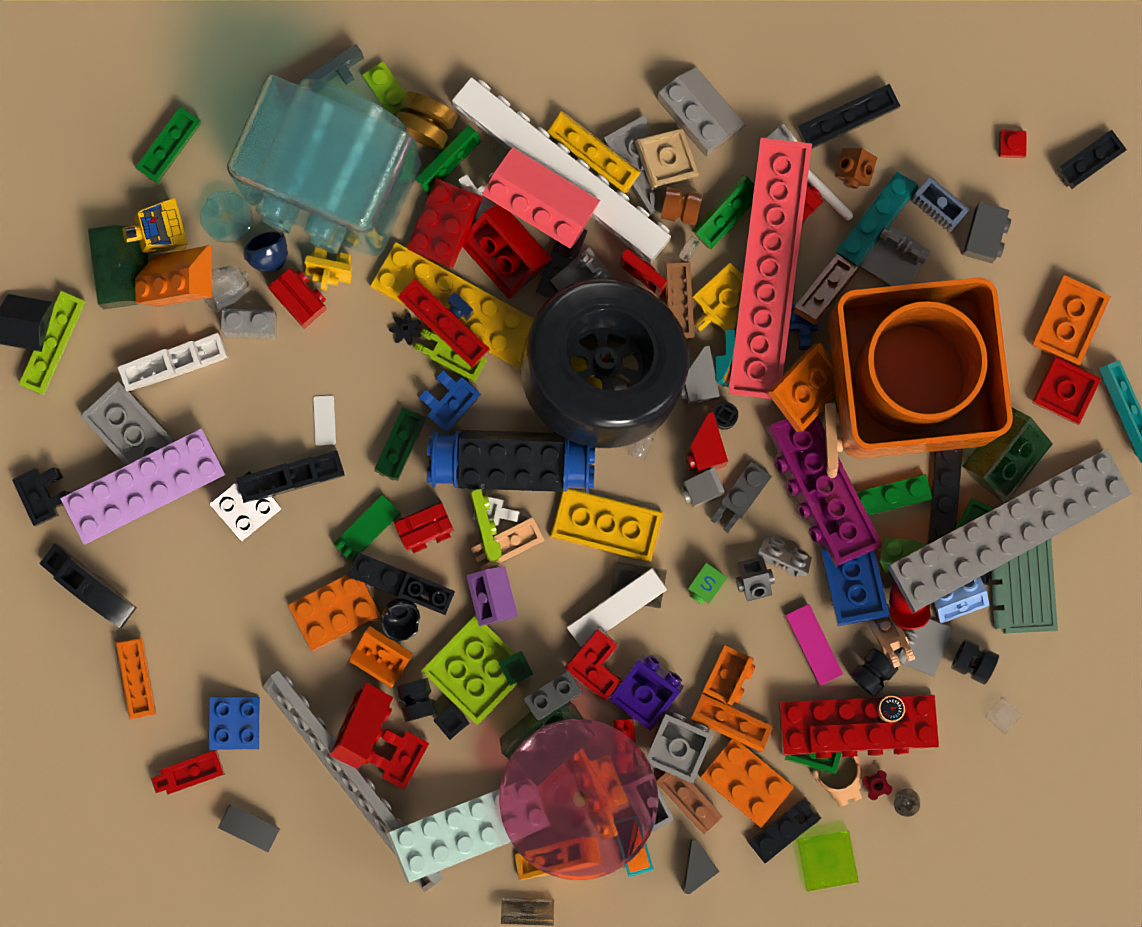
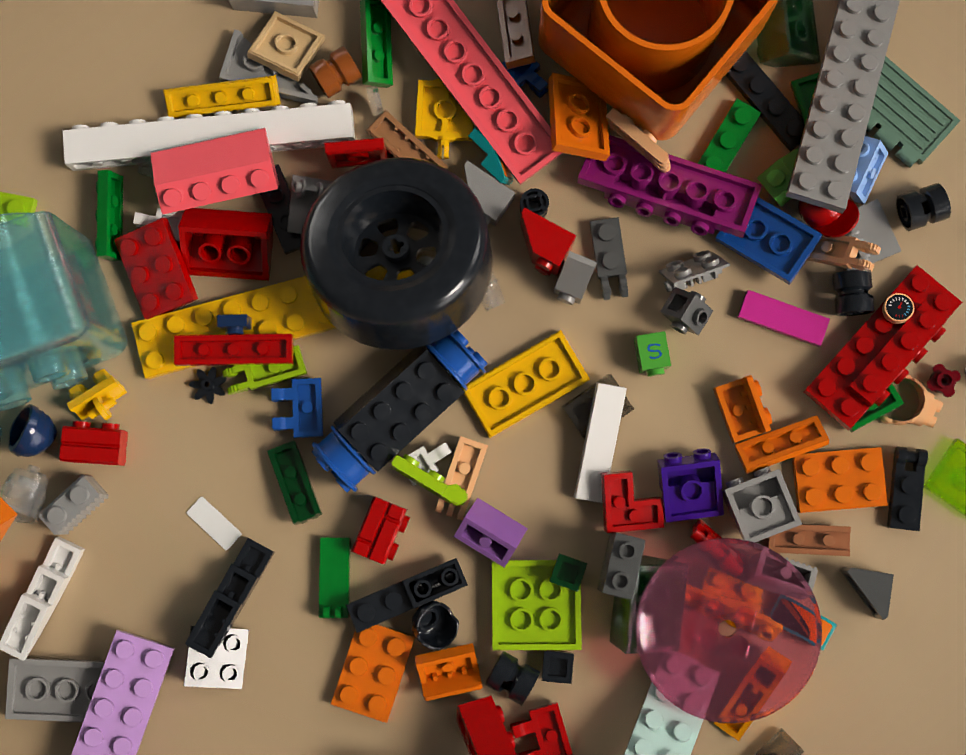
camera: 40 degrees left, 0 degrees up
(426, 119) = (60, 194): pearl gold wheel -> none

